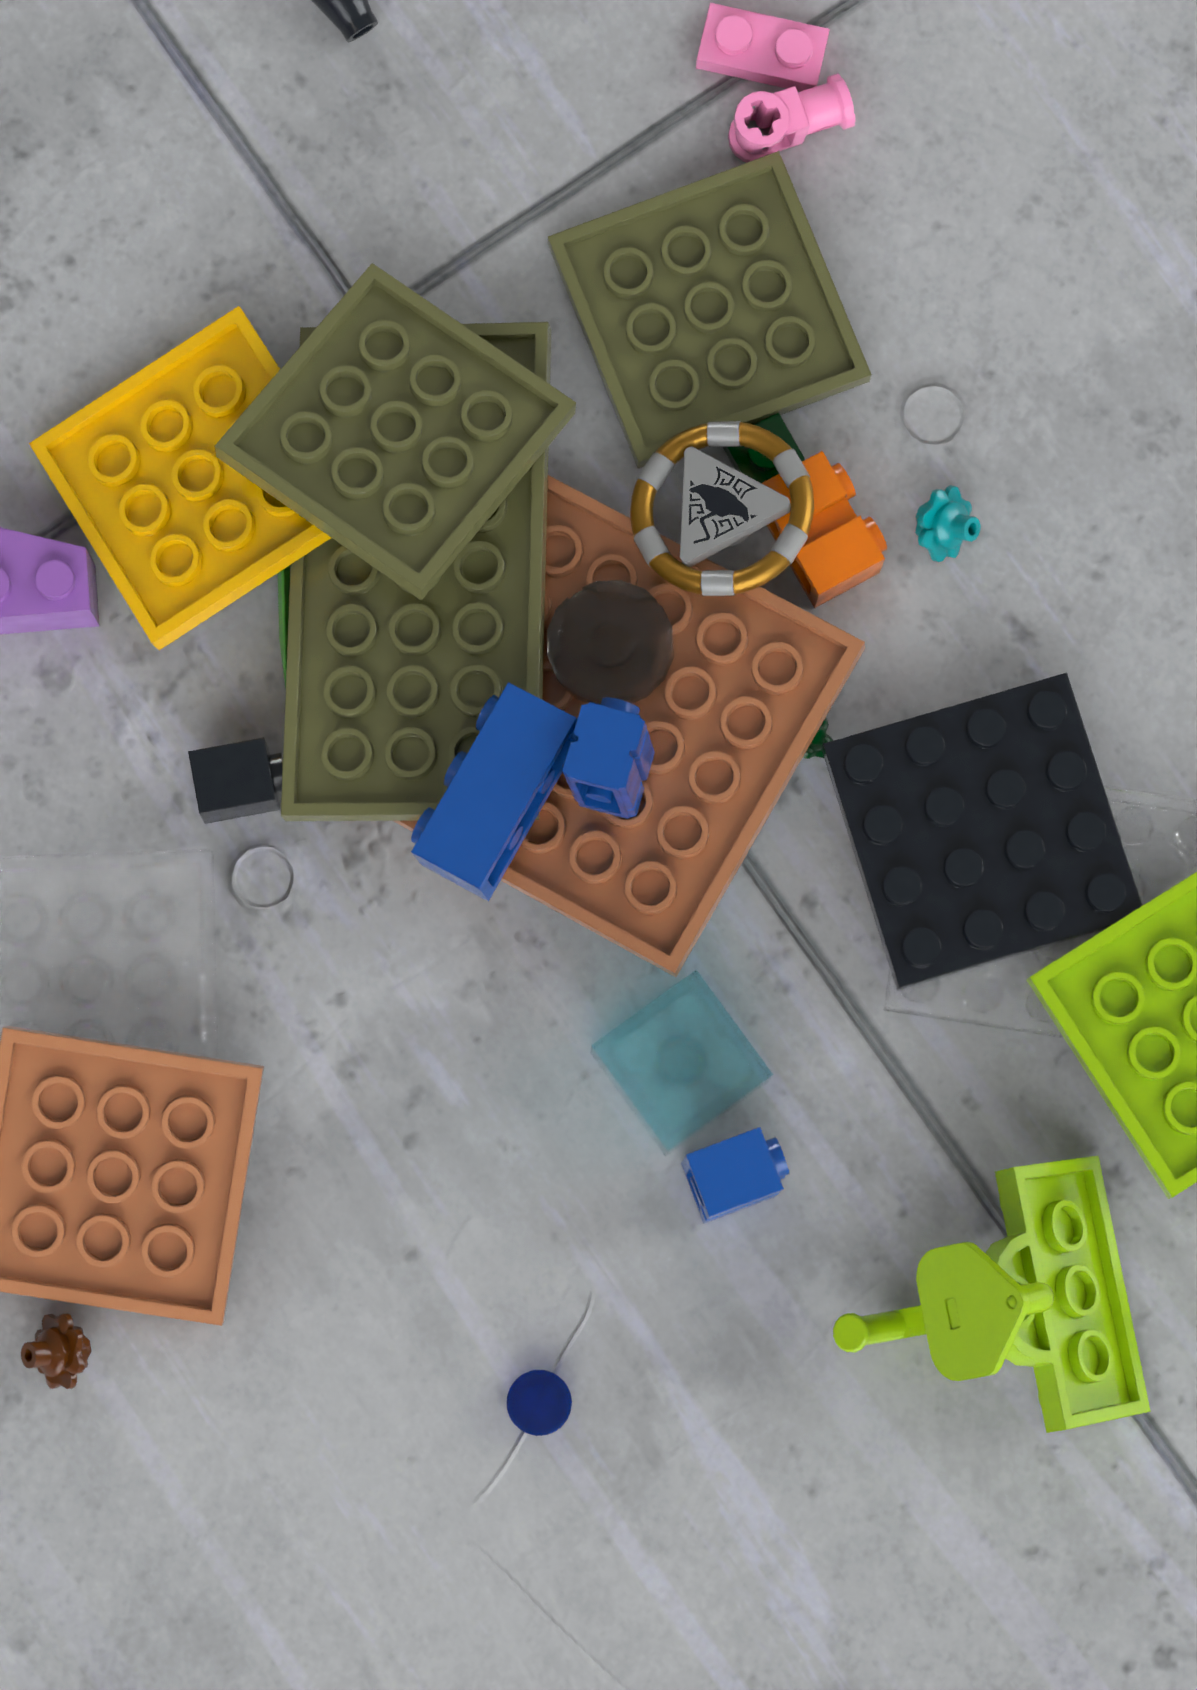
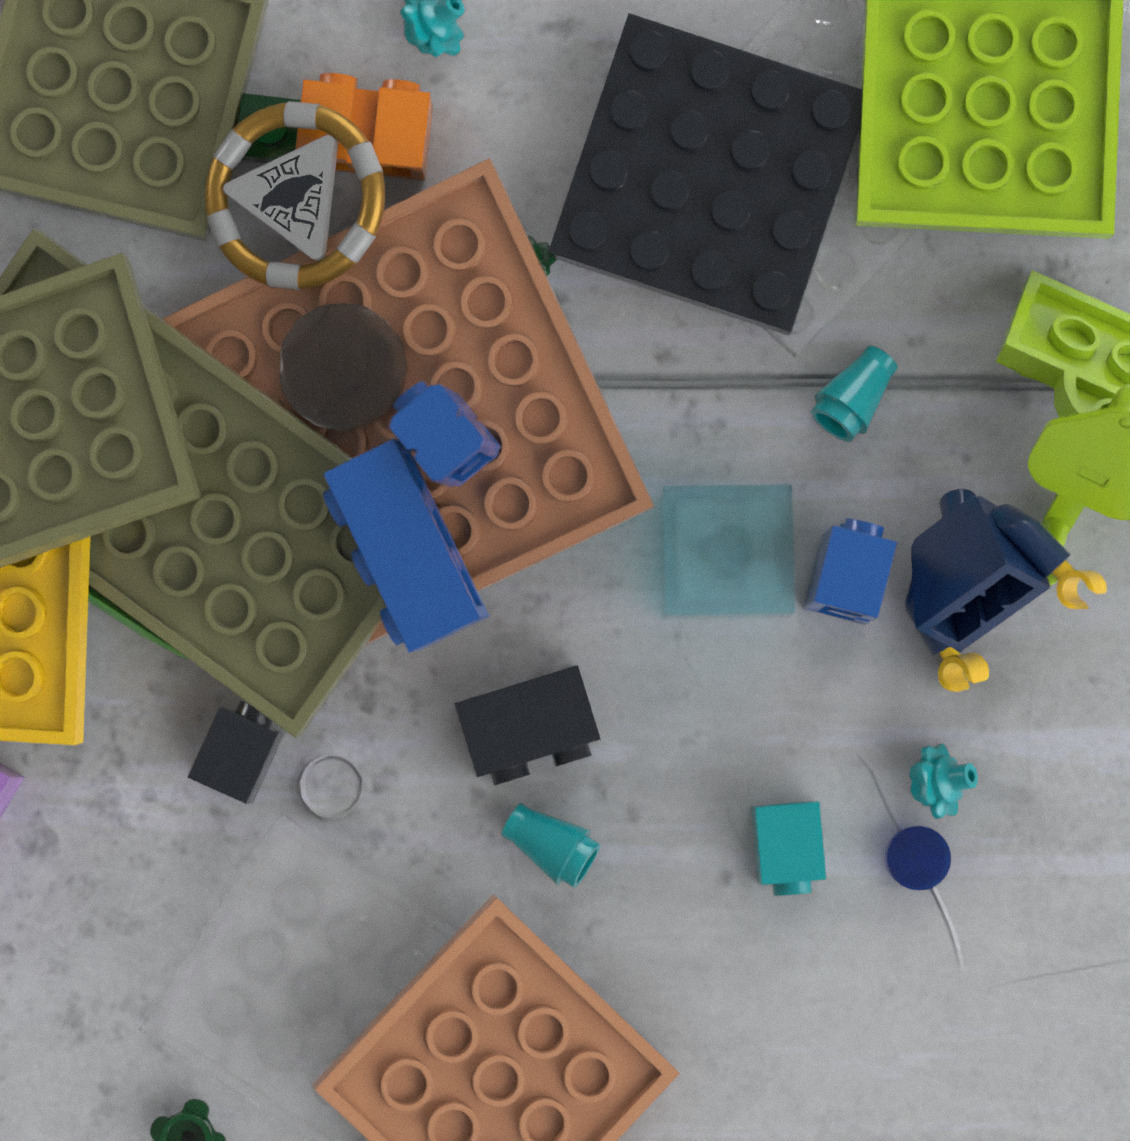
camera: 50 degrees left, 5 degrees up
(339, 1089) = (554, 845): none -> teal cone
(424, 999) = (528, 723): none -> black brick
(473, 1285) = (789, 846): none -> teal brick
(616, 1375) = (940, 780): none -> teal plant
(808, 1280) = (977, 573): none -> dark blue torso
(886, 1079) = (853, 396): none -> teal cone

